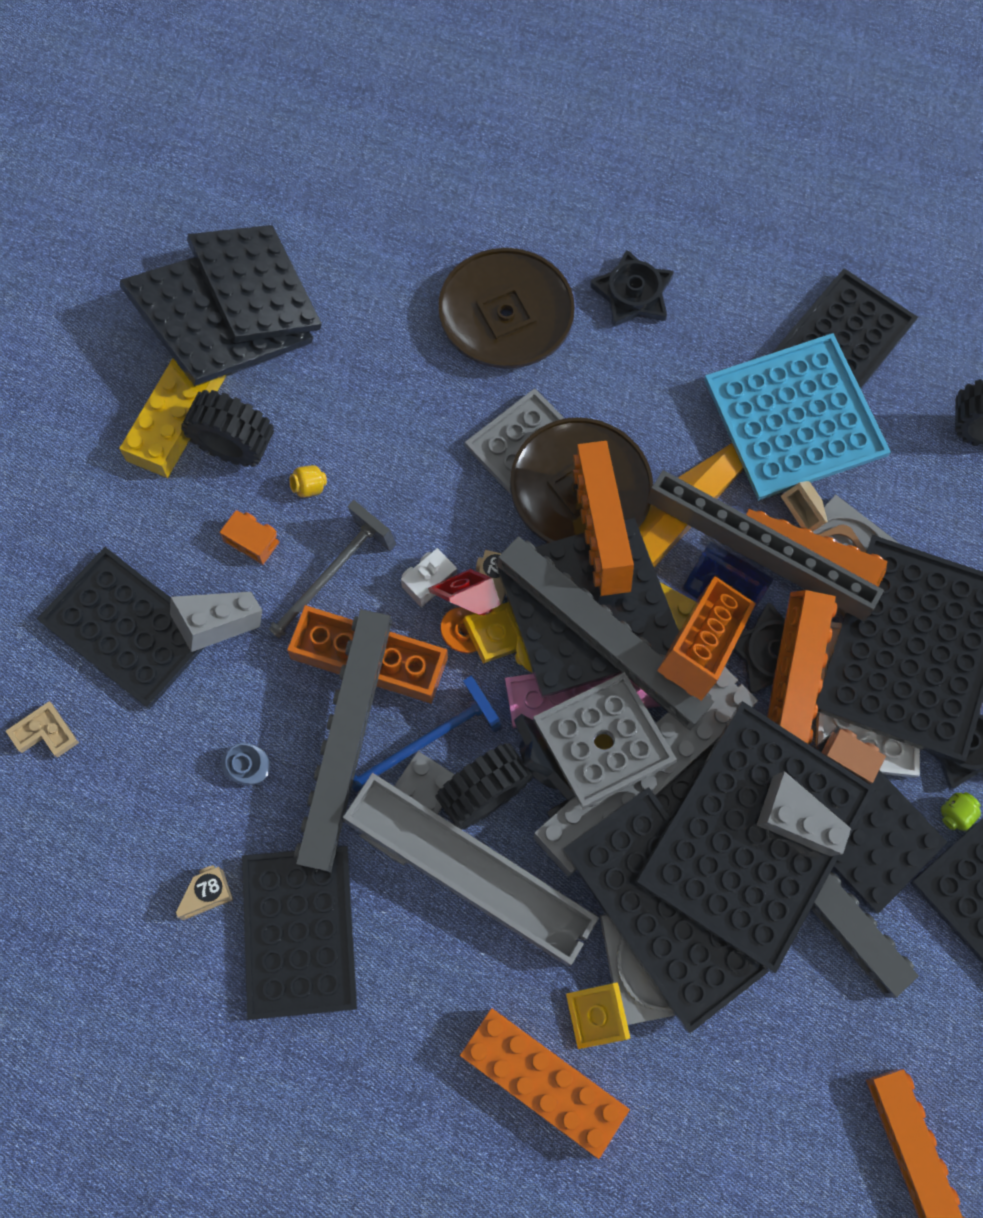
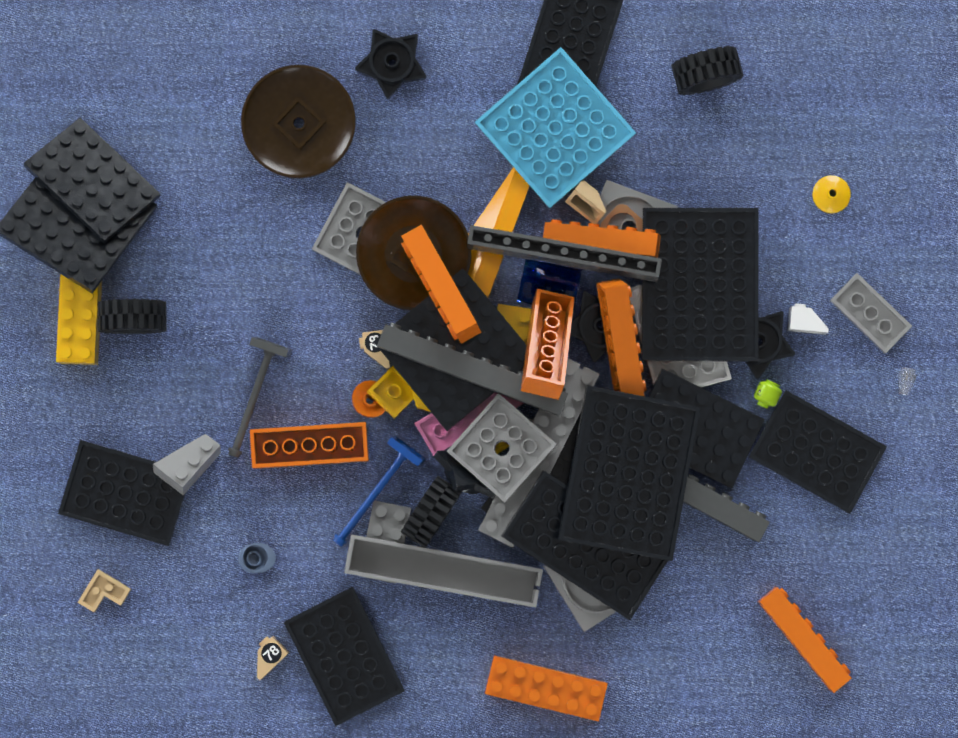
camera: 20 degrees left, 15 degrees up
(250, 536) = (183, 389): orange brick -> none
(307, 481) = (206, 328): yellow head -> none
(344, 741) = (321, 516): dark grey brick -> none
(430, 571) = (328, 368): white brick -> none
(470, 591) = (362, 373): slope -> none
(598, 1016) = (566, 632): yellow plate -> none
(801, 817) = (654, 452): light grey wedge -> none
(854, 755) = (678, 390): nougat brick -> none

